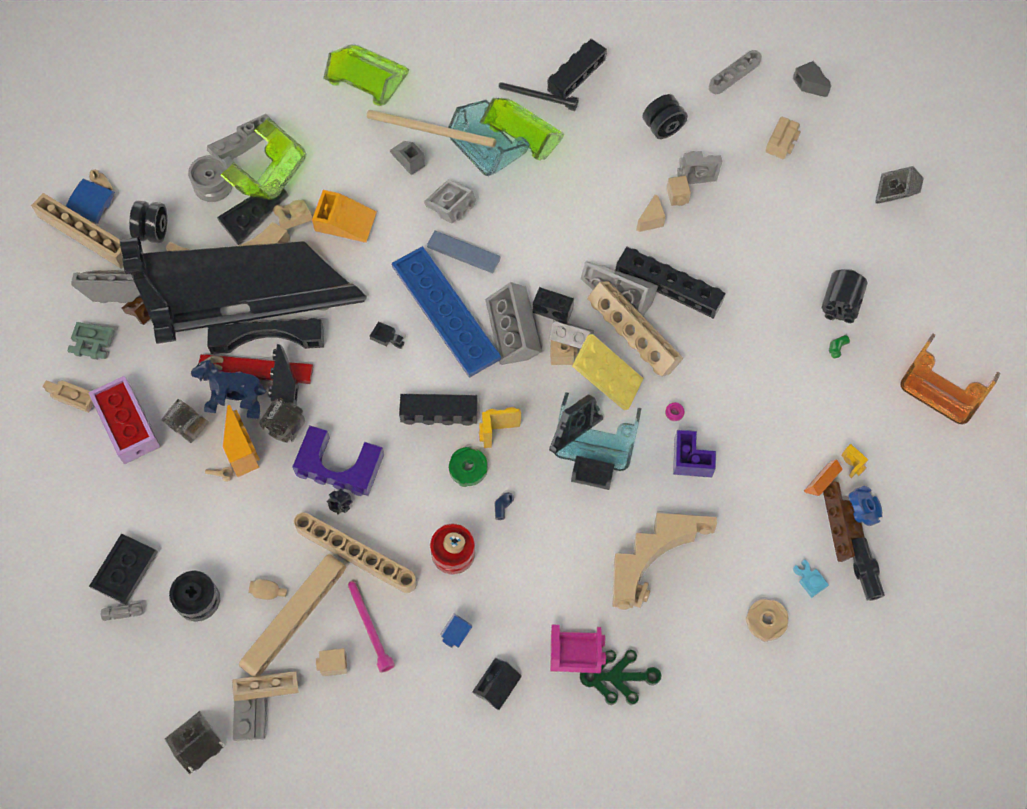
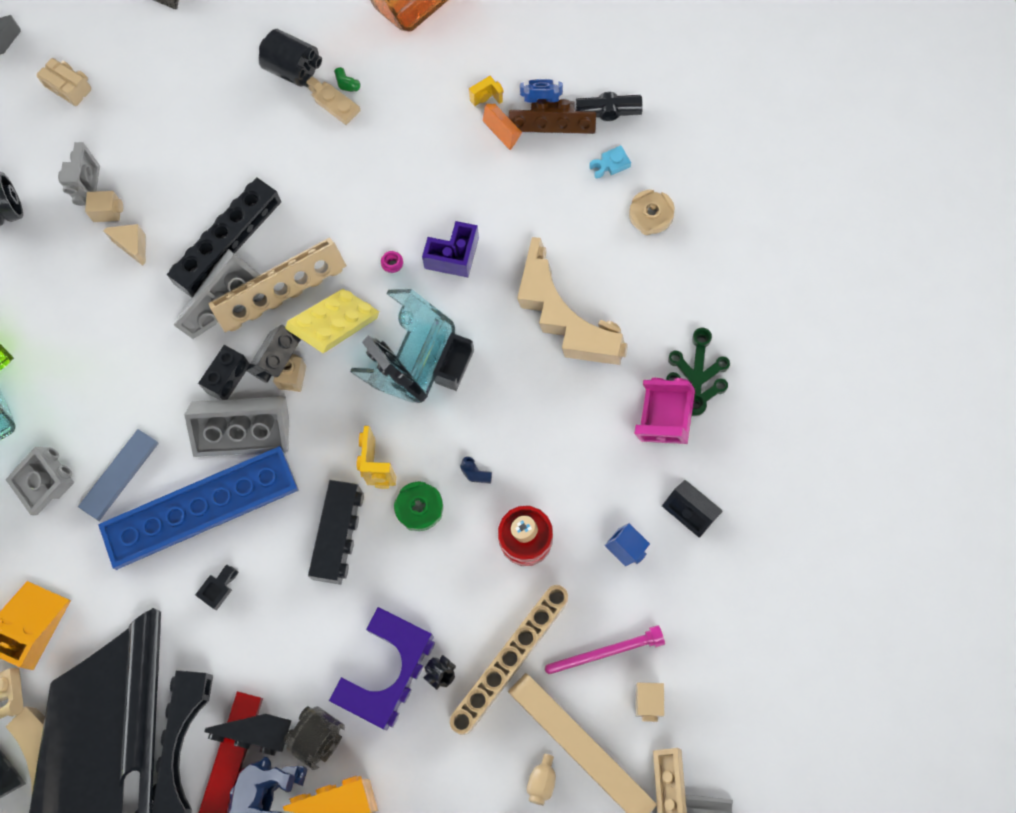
camera: 75 degrees left, 5 degrees up
(816, 340) = (333, 100): none -> tan hinge

